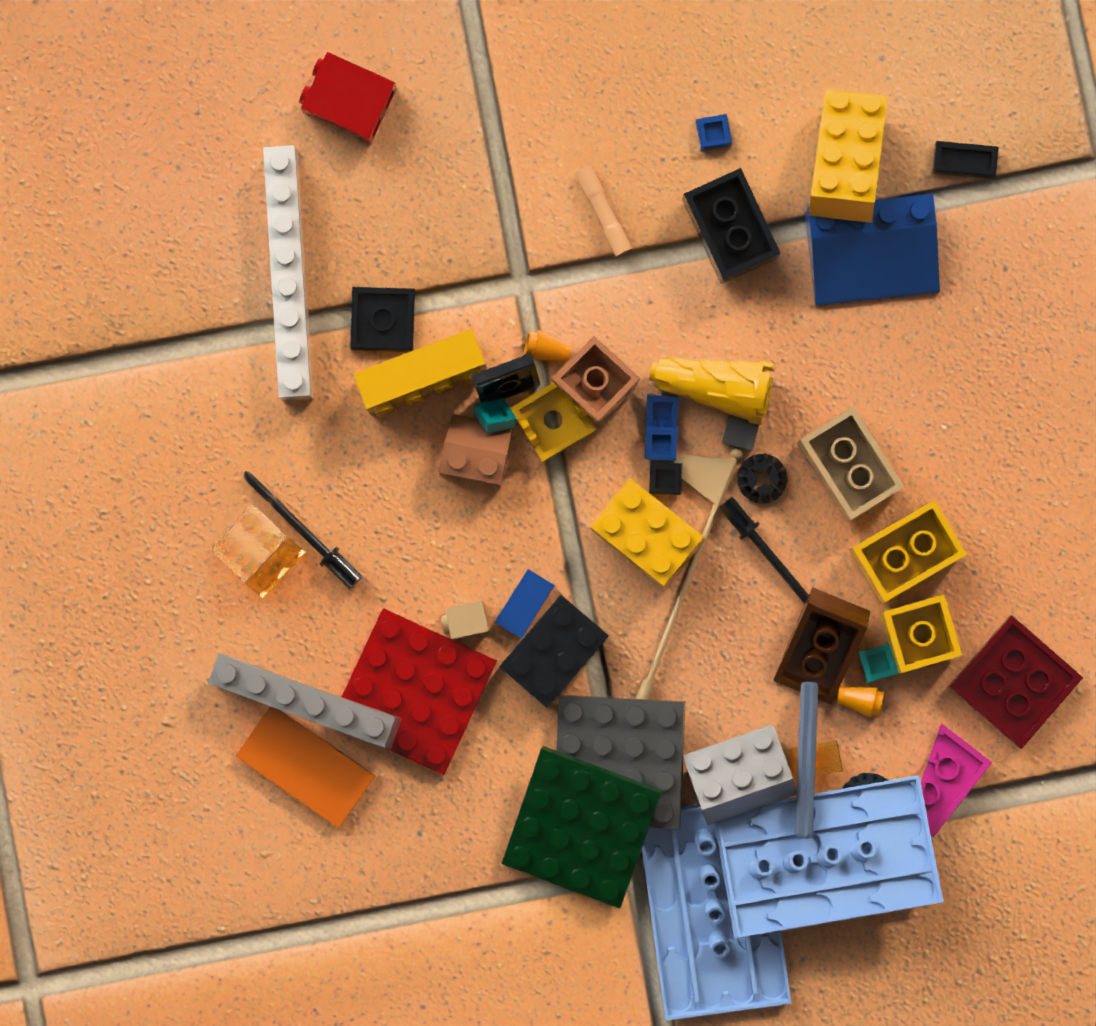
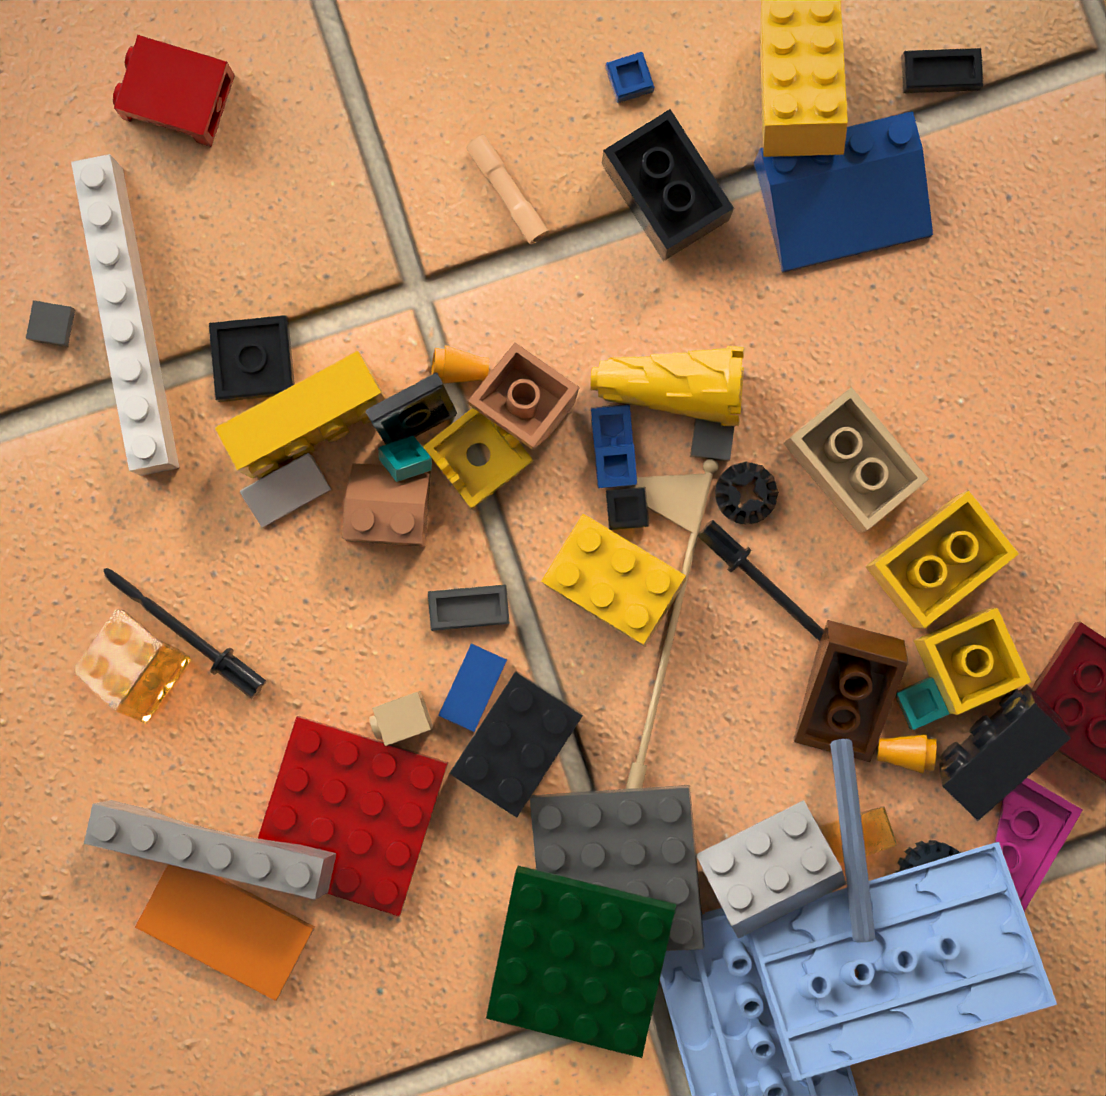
camera: 10 degrees left, 0 degrees up
(226, 270) = (50, 323): none -> dark grey tile
(396, 428) = (285, 490): none -> white slope
(529, 540) = (468, 607): none -> dark grey tile
(931, 705) = (1002, 751): none -> black brick

